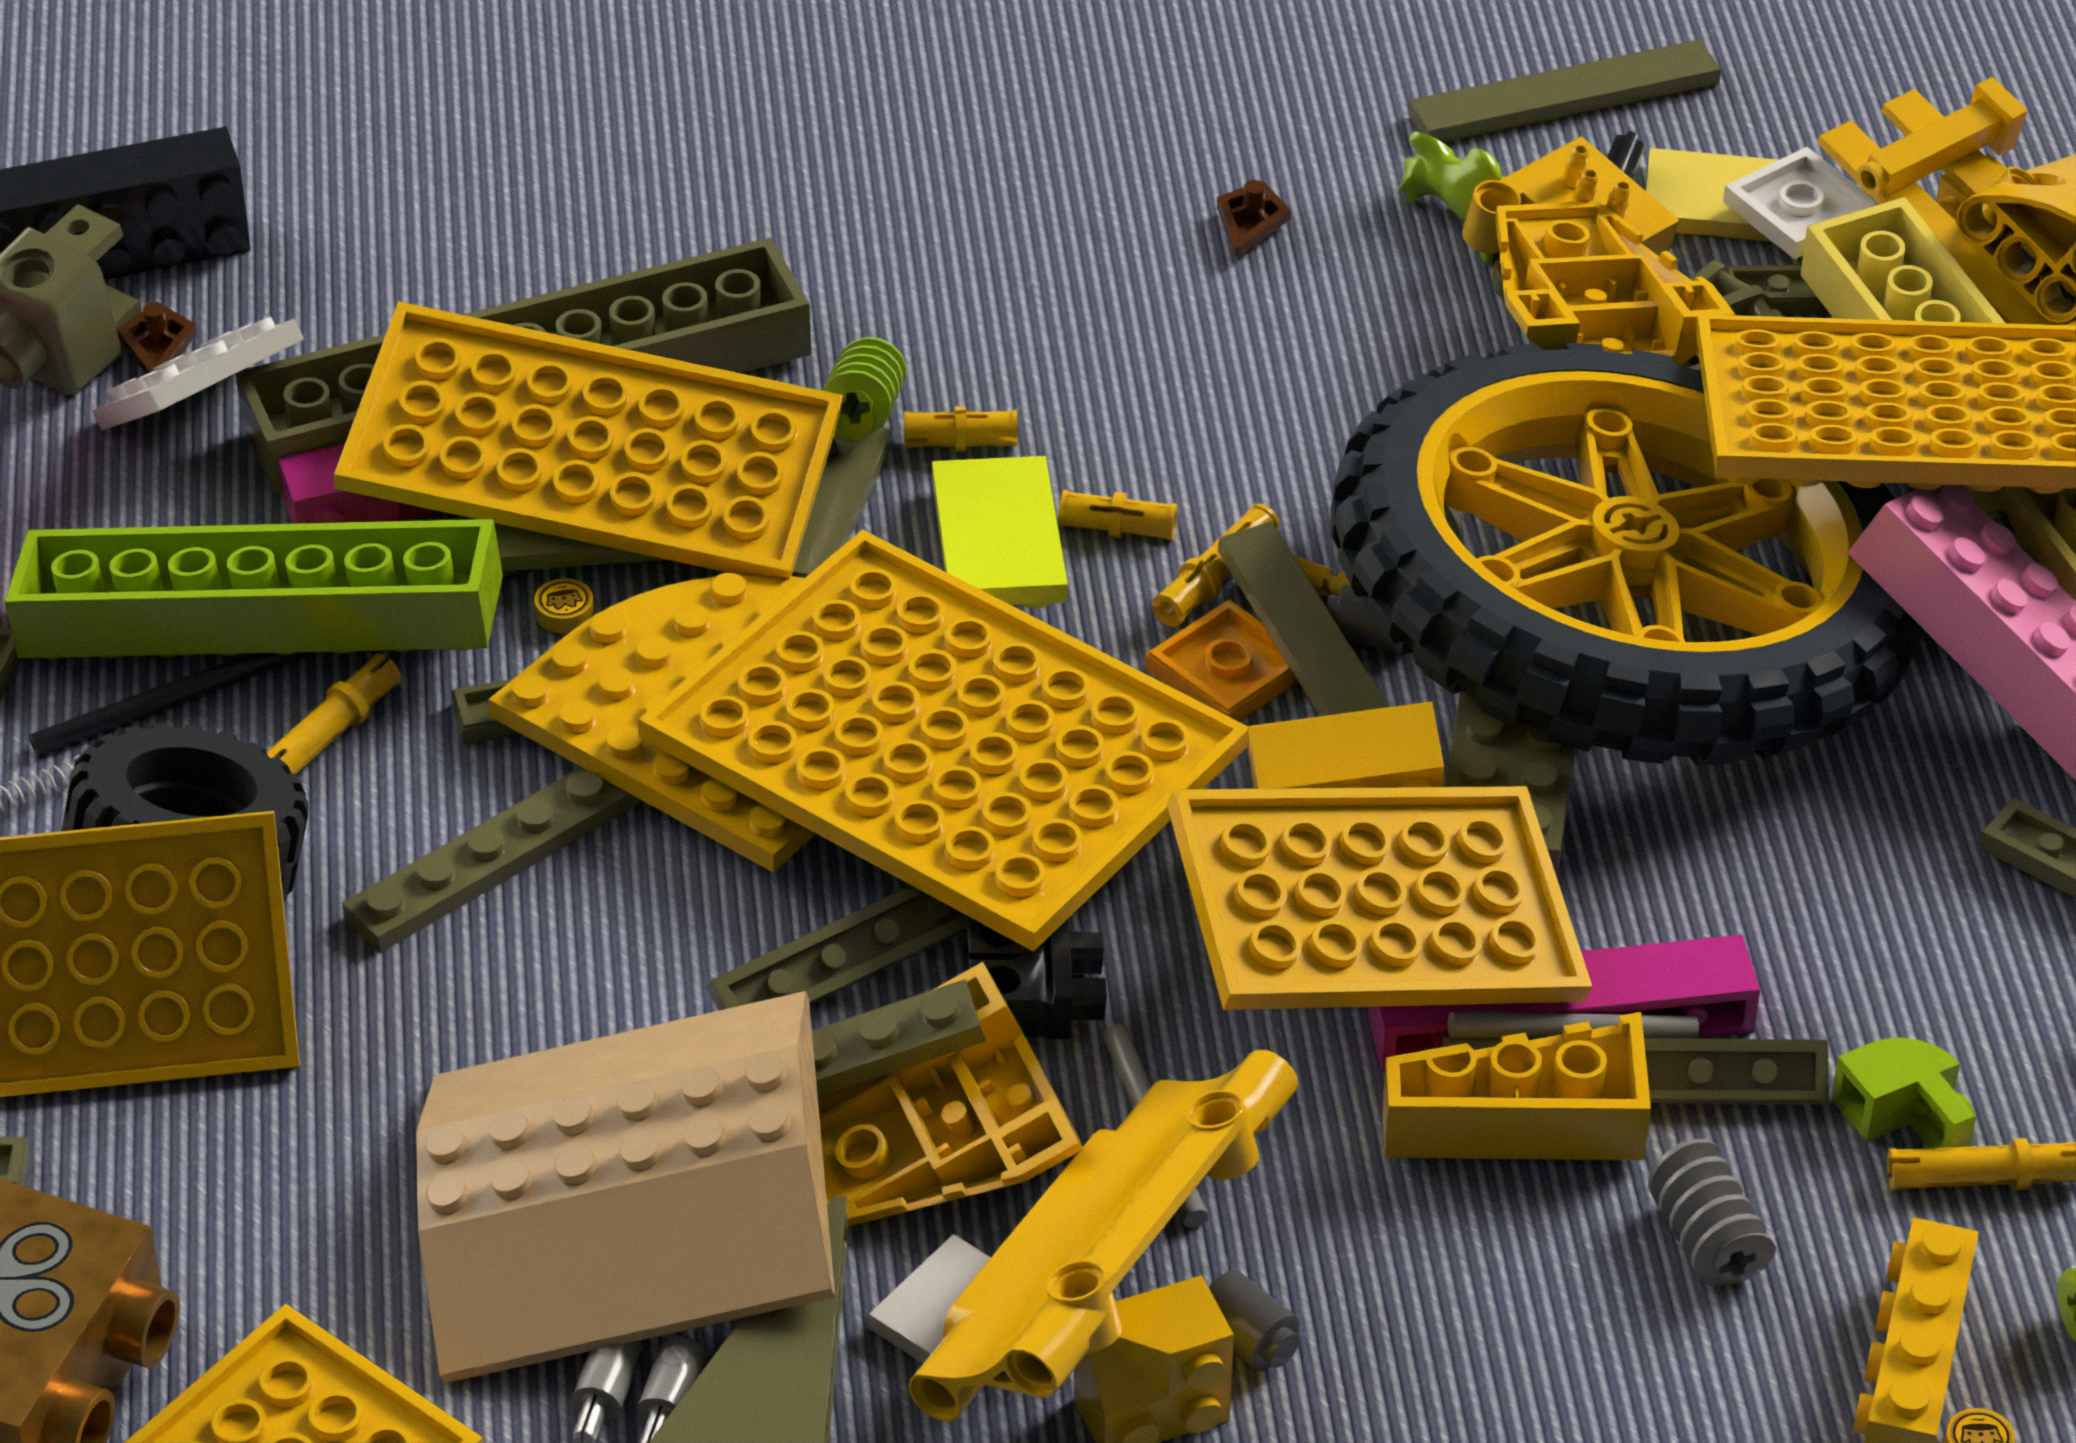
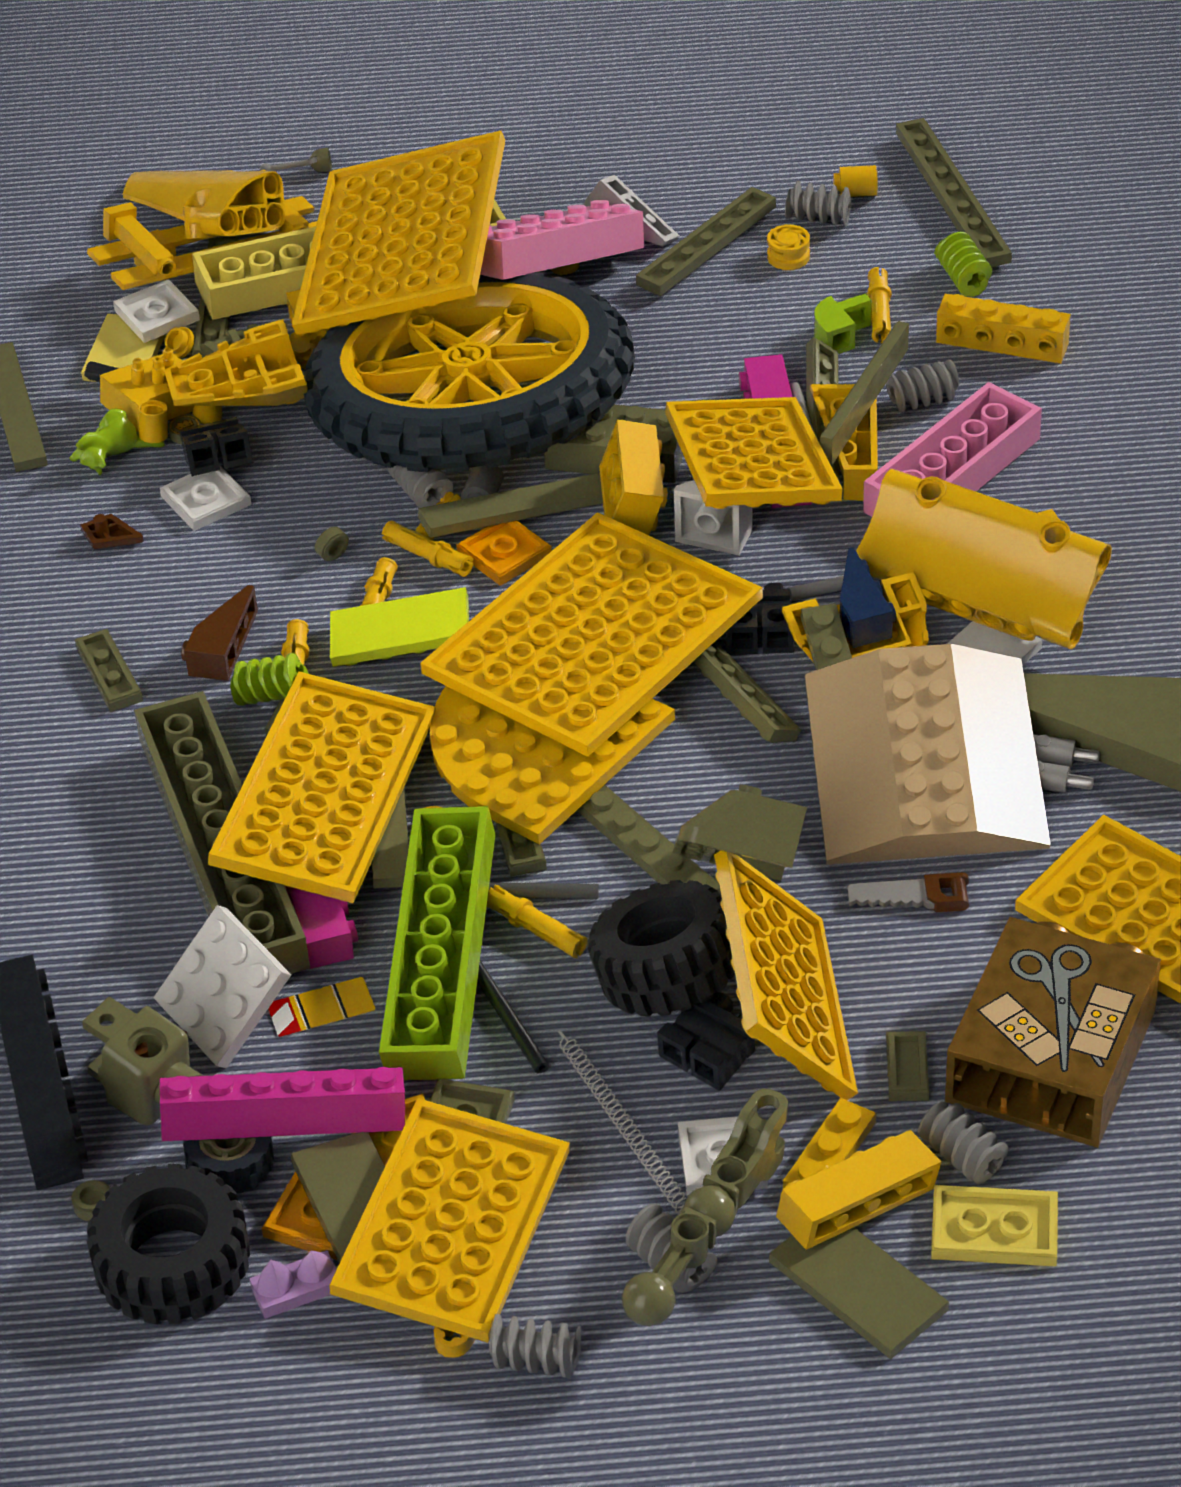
camera: 85 degrees left, 0 degrees up
(198, 496) = (321, 1006): none -> yellow sticker
(311, 800) = (748, 825): none -> olive windscreen
(344, 1186) = (914, 892): none -> piece
(405, 727) = (550, 890): none -> dark grey bar
(933, 245) = (108, 670): none -> olive tile
(990, 345) = (220, 637): none -> reddish brown slope
(996, 1074) = (863, 608): none -> dark blue slope
(1218, 450) = (331, 544): none -> olive tile
(1352, 314) = (205, 497): none -> white tile
(1445, 294) = (212, 440): none -> black hips
(1471, 1248) = (967, 443): none -> bright pink brick
(1588, 1069) = (865, 391): none -> olive tile
(1741, 247) = (180, 341): none -> yellow plate

